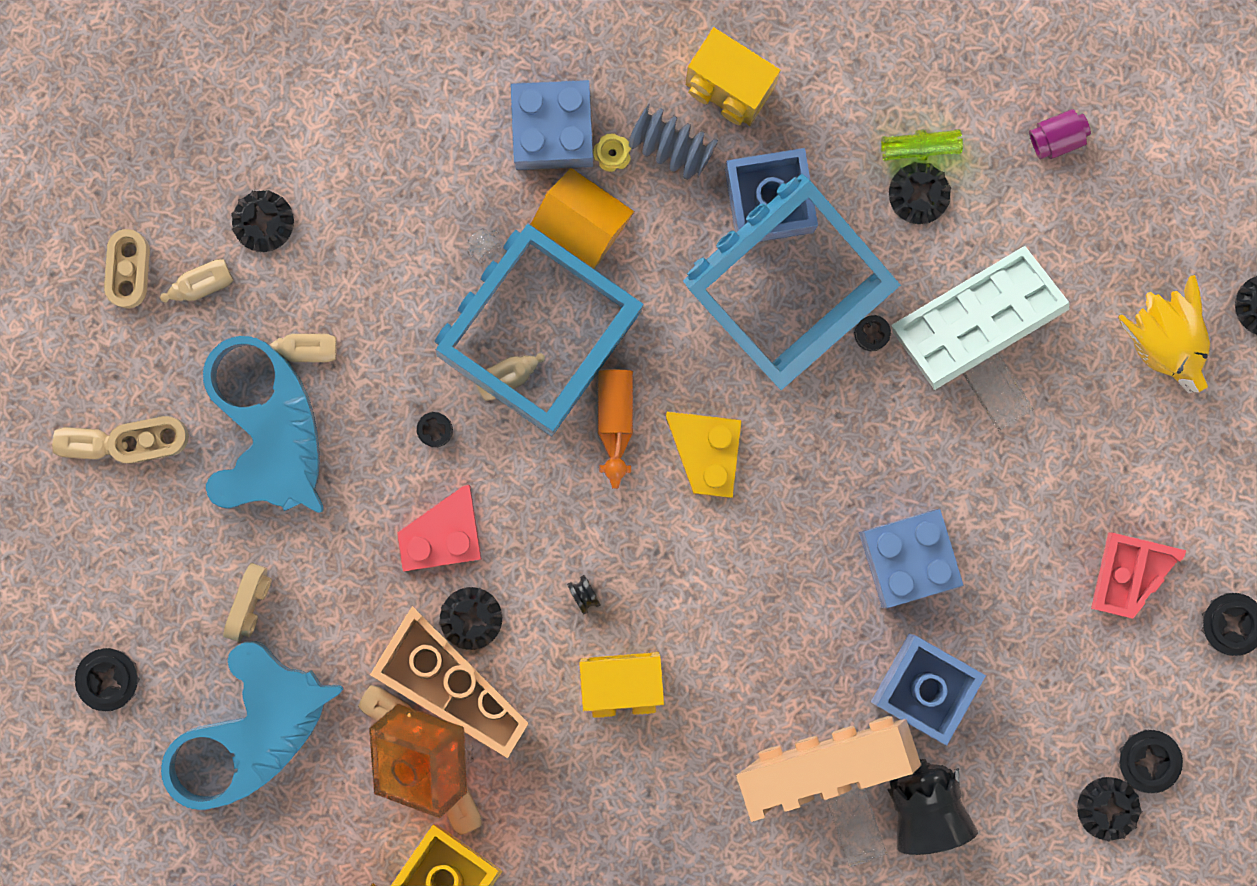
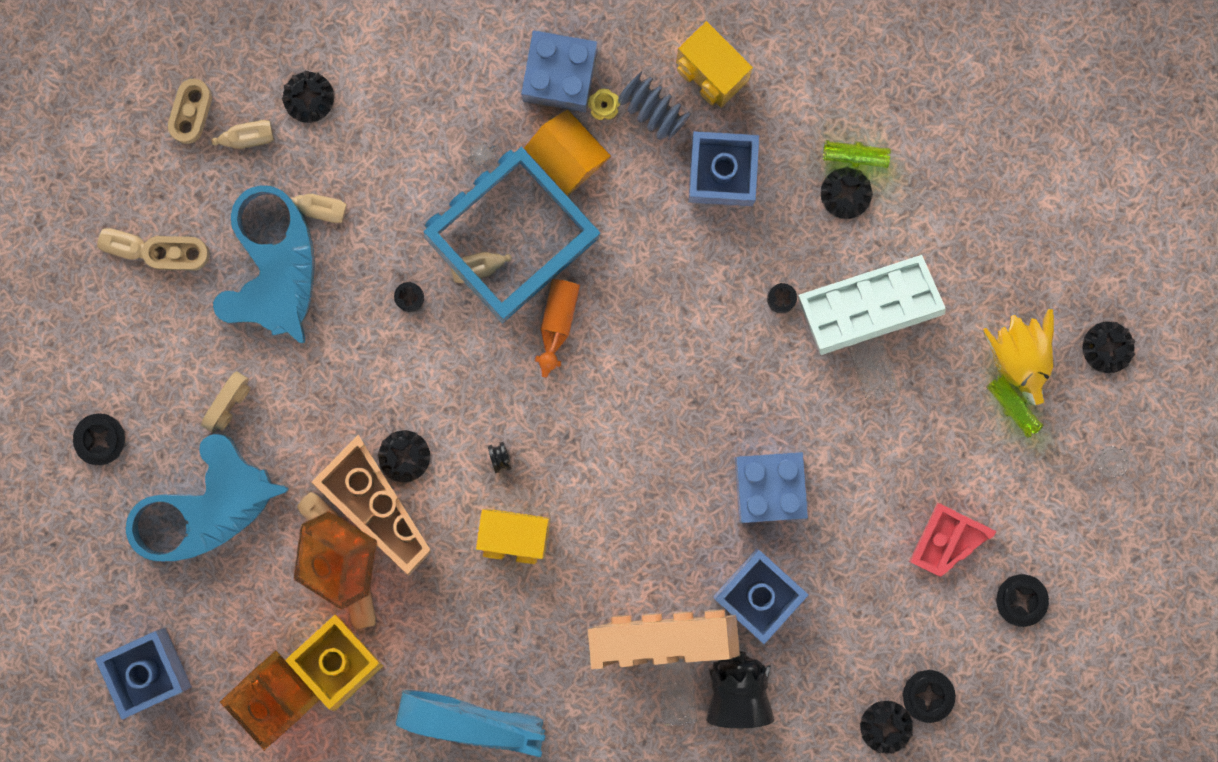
camera: 15 degrees right, 0 degrees up
(442, 534) = (396, 383): coral wing -> none
(707, 451) = (625, 363): yellow wing -> none
(833, 324) = (744, 287): dark azure window -> none
(1060, 134) = (971, 170): magenta brick -> none
(1173, 398) = (1014, 406): none -> clear neon green pin

